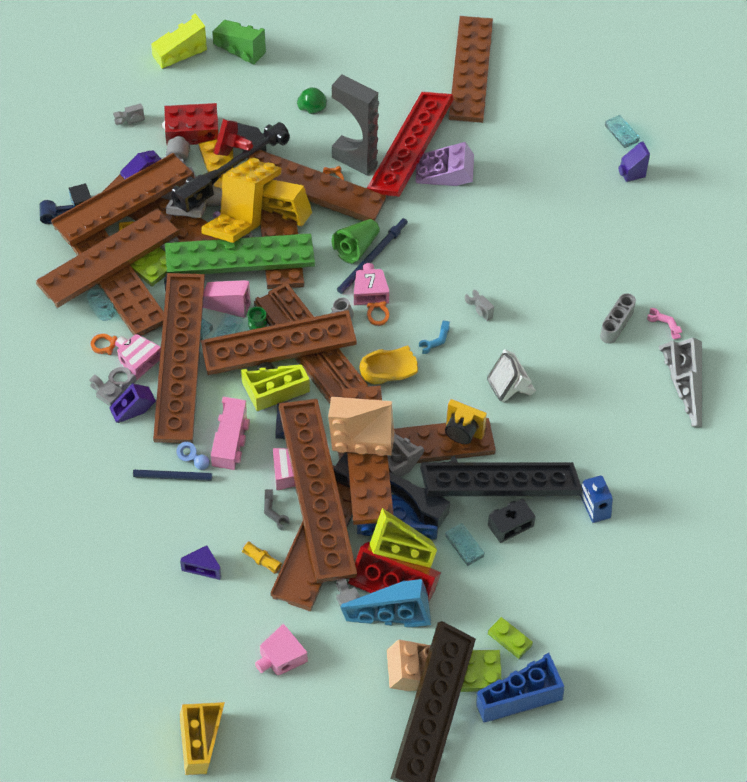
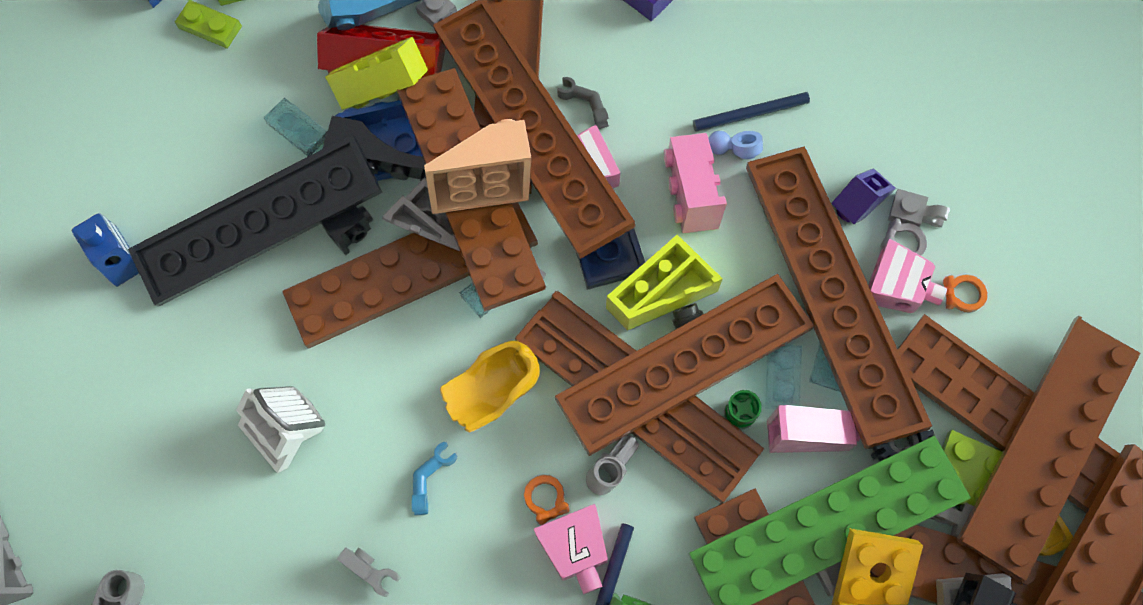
camera: 165 degrees right, 15 degrees up
(99, 303) = (1012, 361): clear light blue plate -> none
(261, 557) = (558, 25): yellow pin -> none
(463, 422) = (330, 285): piece -> none
(511, 520) = (232, 174): black brick -> none

